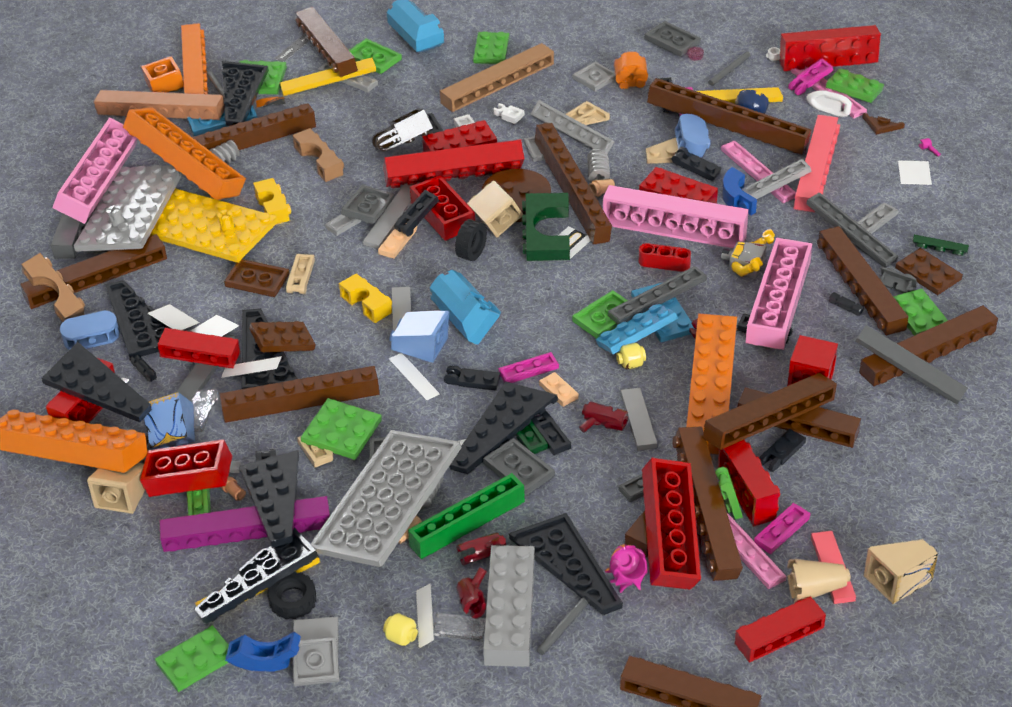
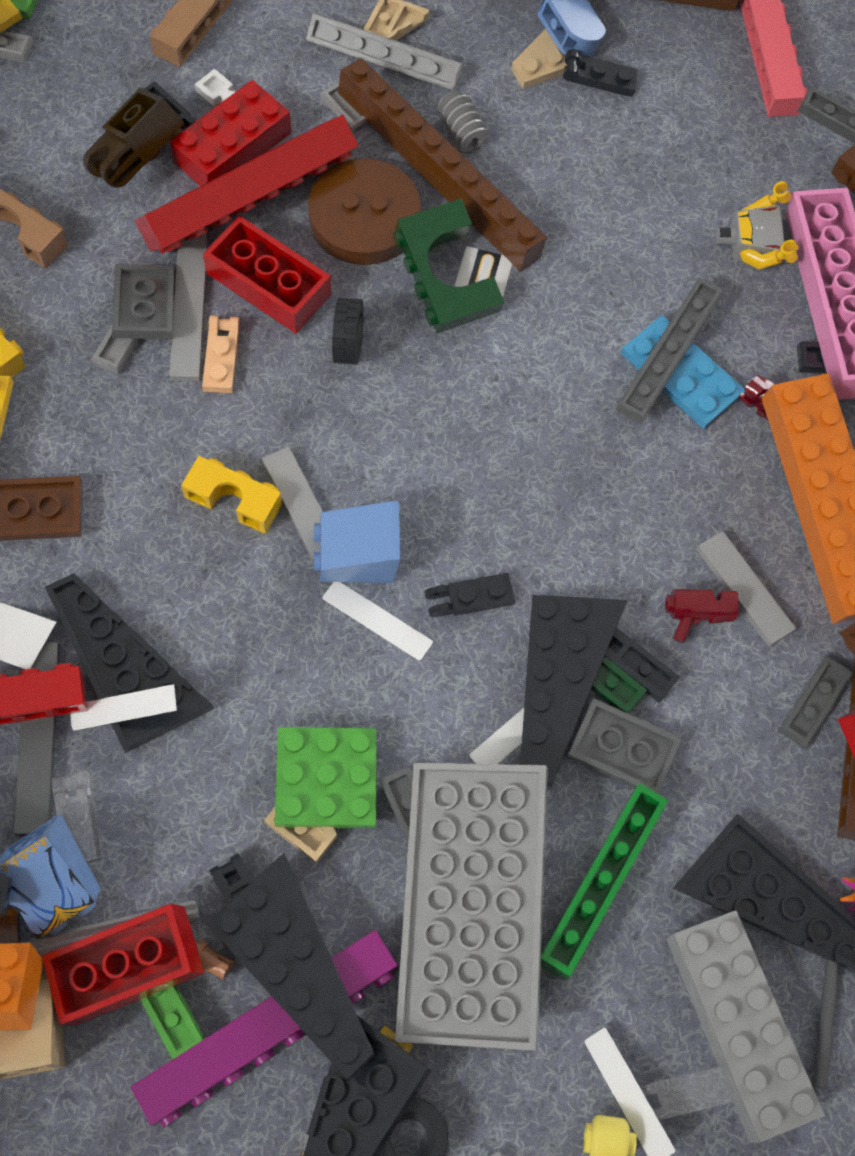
camera: 30 degrees left, 25 degrees up
(282, 336) = (139, 623): reddish brown plate -> none
(299, 394) = (222, 730): reddish brown brick -> none
(300, 273) = (101, 475): tan plate -> none
(416, 213) = (240, 305): black plate -> none
(465, 305) = (402, 467): dark azure brick -> none
(471, 596) = (683, 1036): dark red piece -> none
(482, 546) = (650, 930): dark red piece -> none
(495, 208) = (354, 255): tan slope -> none
(509, 114) = (277, 48): white plate -> none
(528, 368) = (542, 546): dark pink tile -> none
(555, 384) = (606, 572): light nougat plate -> none
(595, 317) = (595, 413): bright green plate -> none
(600, 186) = (484, 156): light nougat cone -> none
(631, 356) = (686, 477): light yellow head -> none
(636, 328) = (675, 427): dark azure plate -> none
(664, 257) = (653, 266): red beam -> none
(675, 216) = (629, 190): bright pink brick -> none
(676, 185) = (604, 142): red brick -> none
(732, 193) = (678, 116): blue arch -> none
(755, 169) = (689, 60): bright pink tile -> none
(778, 179) = (731, 75): light grey tile -> none

